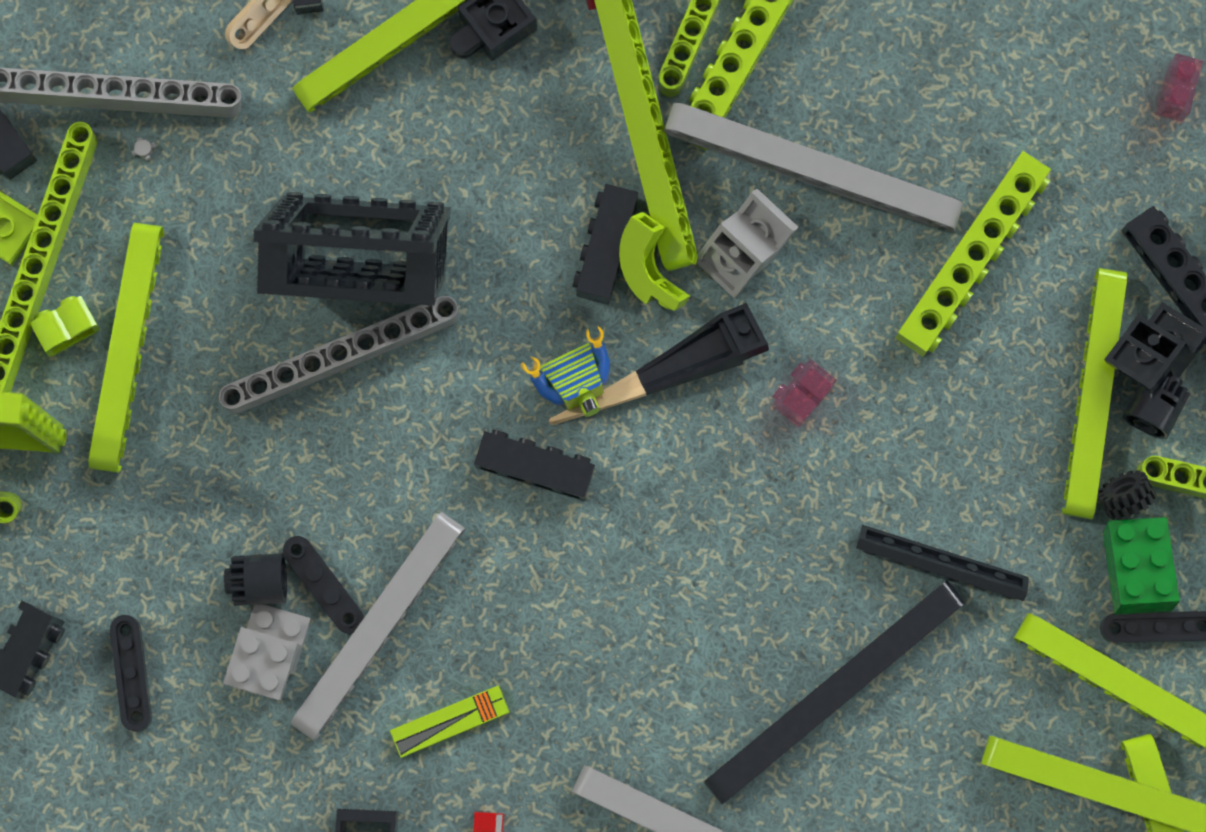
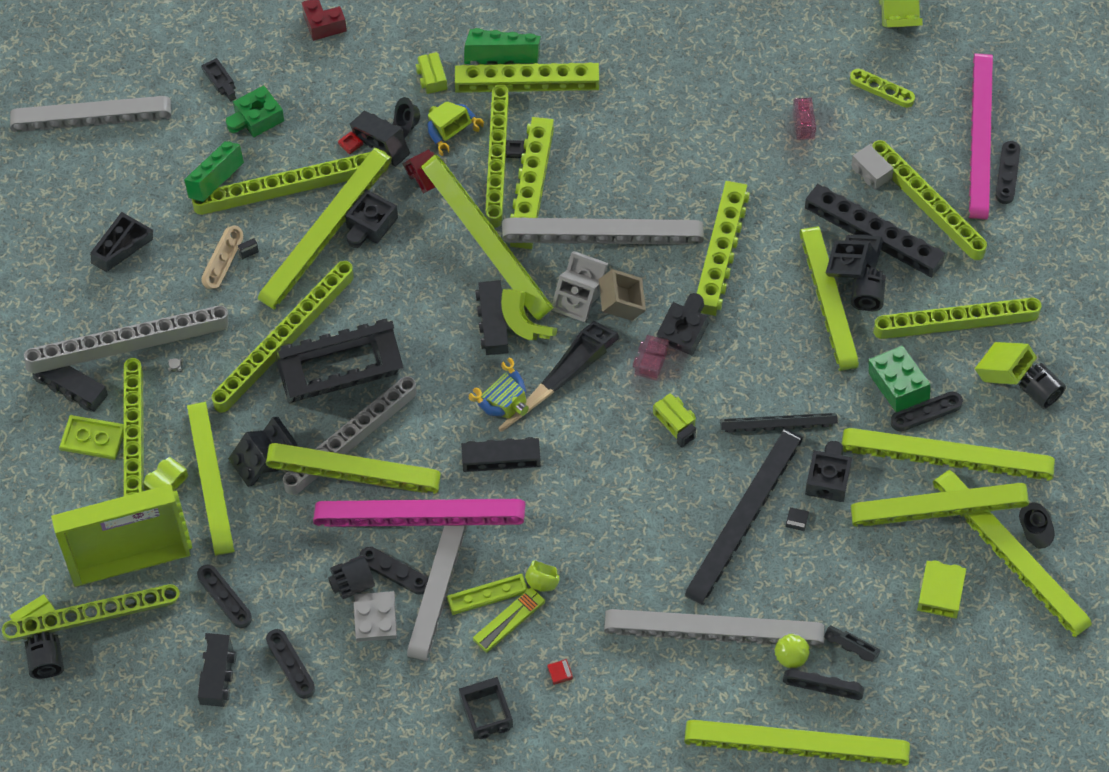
camera: 20 degrees left, 20 degrees down
(80, 536) = (224, 596): none -> black plate
(208, 337) = (252, 450): none -> black bracket
(291, 162) = (274, 340): none -> lime beam
(319, 415) = (353, 468): none -> lime beam
(386, 520) = (419, 512): none -> dark pink beam
(435, 670) = (487, 594): none -> lime tile
(518, 678) = (542, 576): none -> lime hair
(799, 282) = (622, 294): none -> dark tan piece
(800, 498) = (673, 414): none -> lime brick
(804, 536) = (686, 435): none -> black tile
(869, 362) = (684, 324): none -> black brick
(907, 723) = (797, 519): none -> black tile
(980, 674) = (829, 473): none -> black brick
(1126, 495) = (873, 342): black tyre -> none

